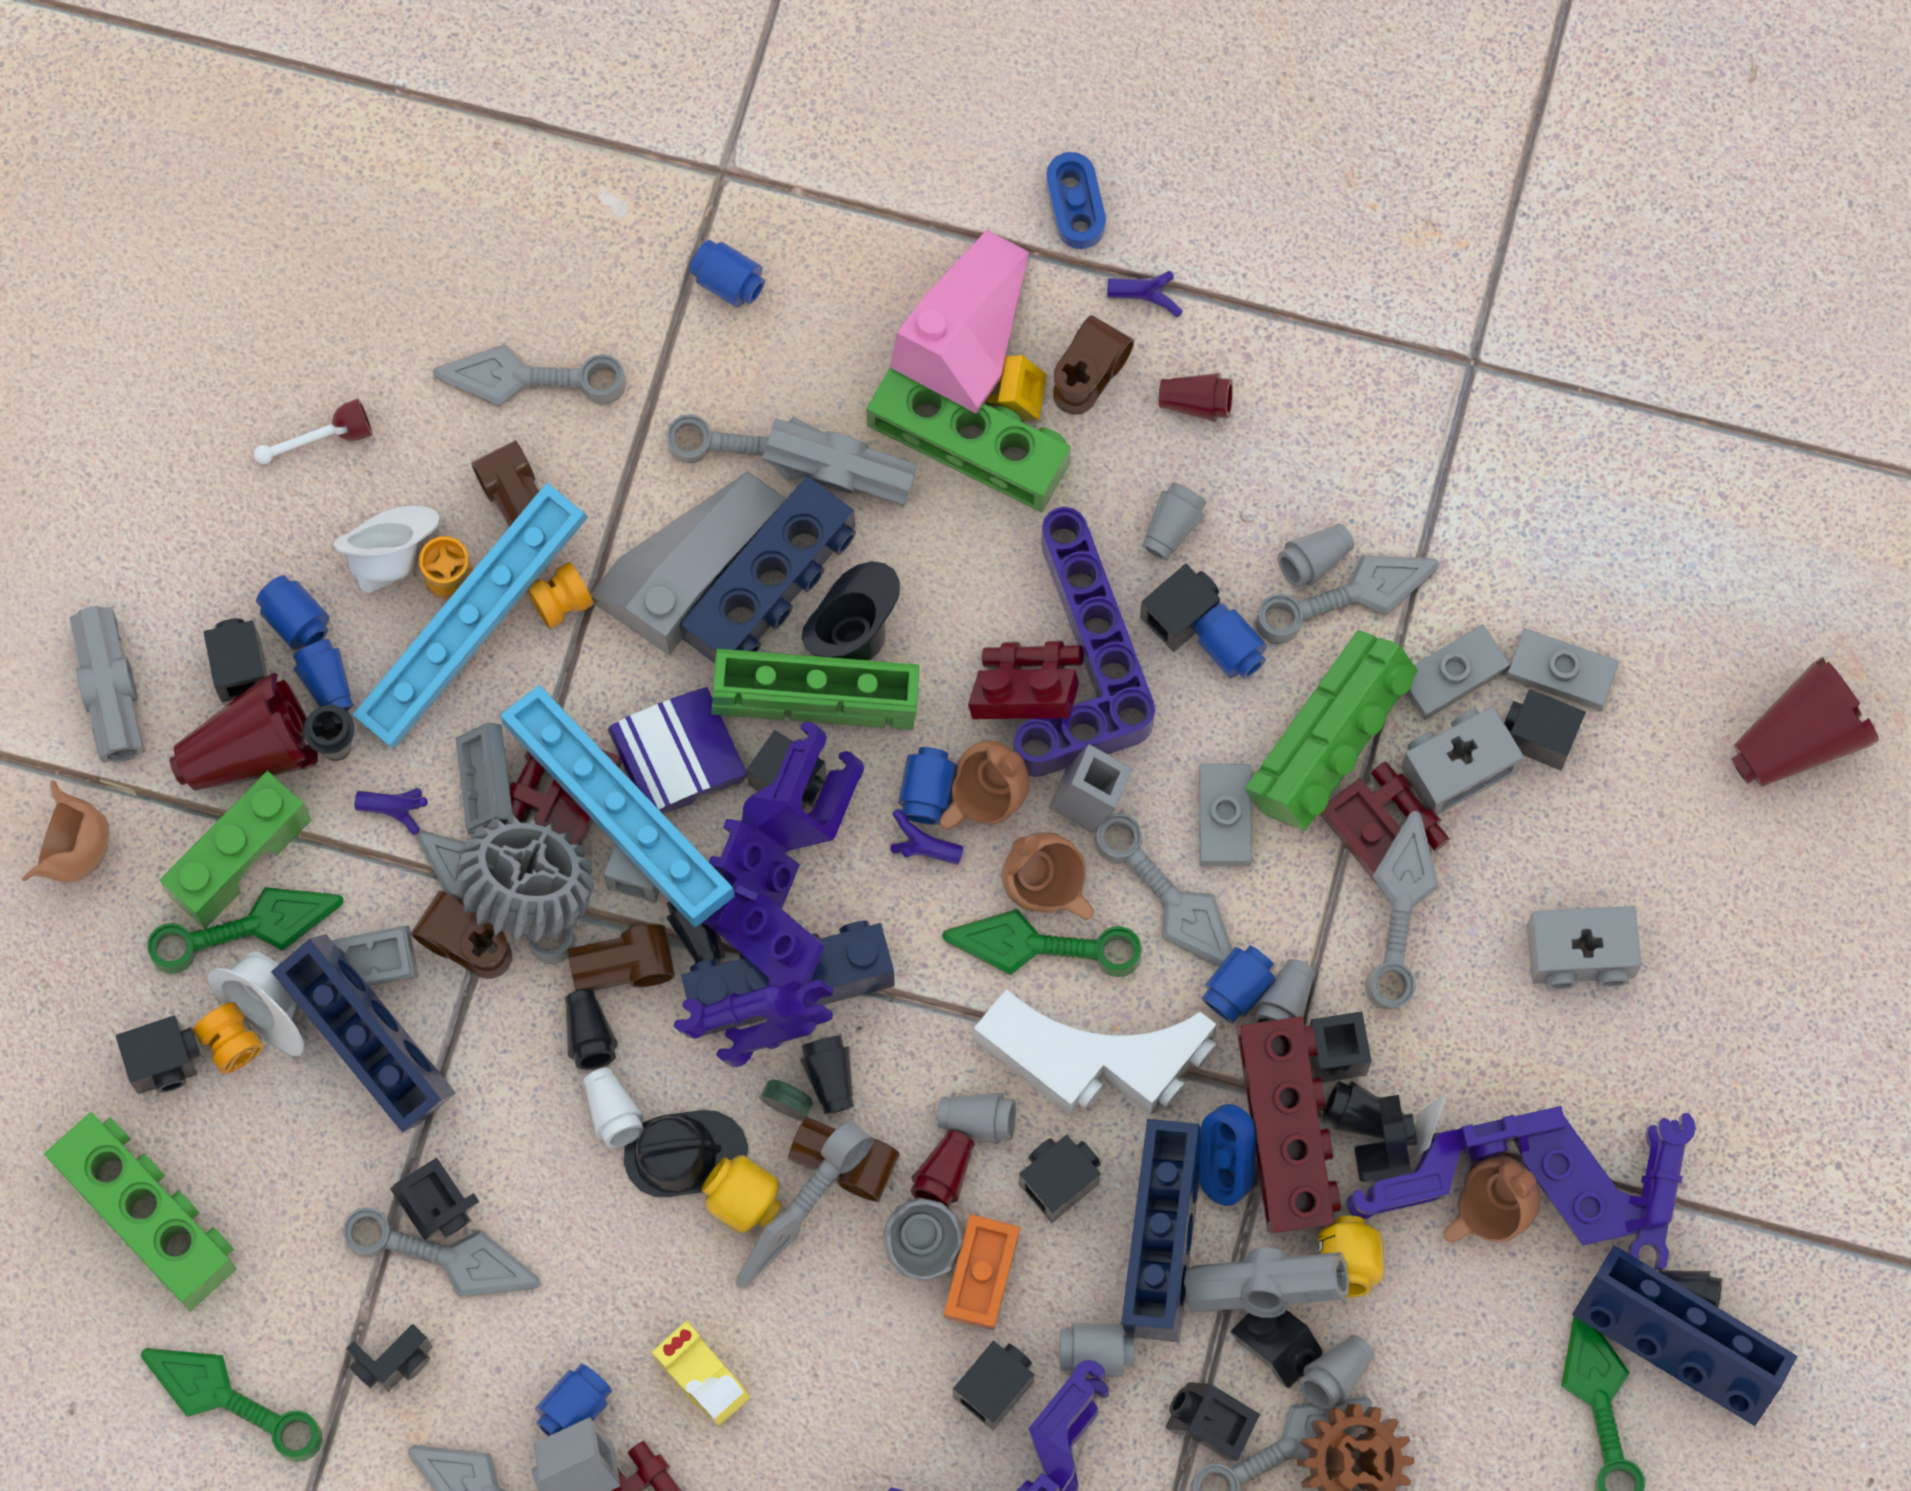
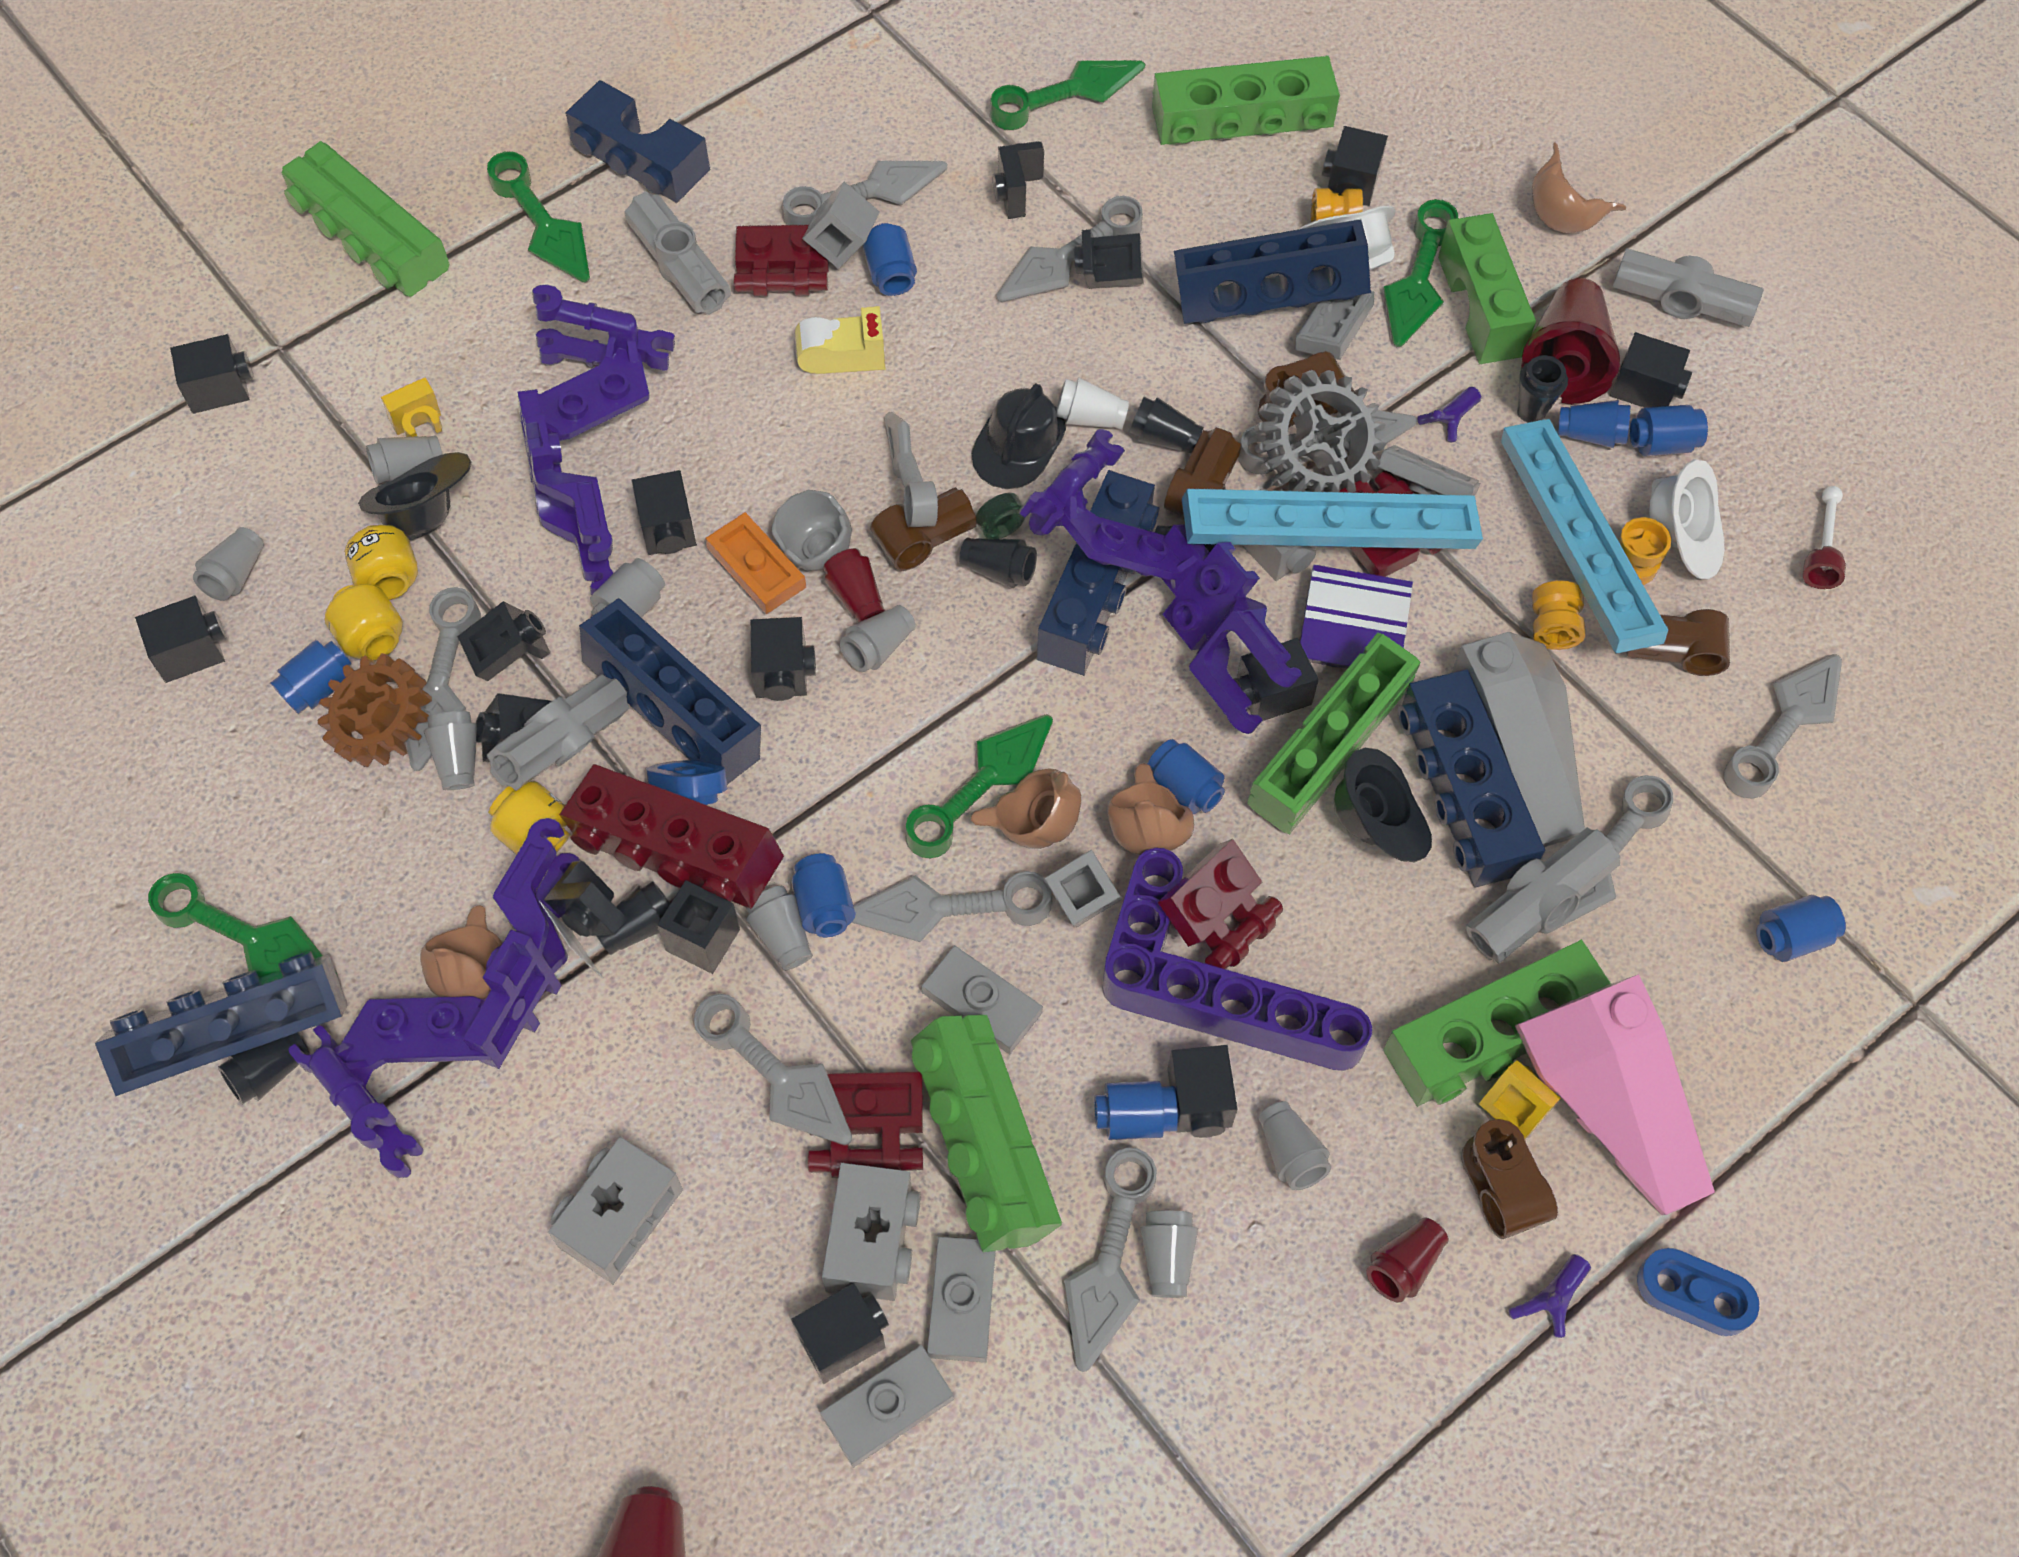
camera: 125 degrees right, 10 degrees down
(741, 1194) = (952, 442): yellow head -> none
(923, 844) = (1136, 743): dark purple bar -> none
(1070, 1062) = (859, 730): white arch -> none

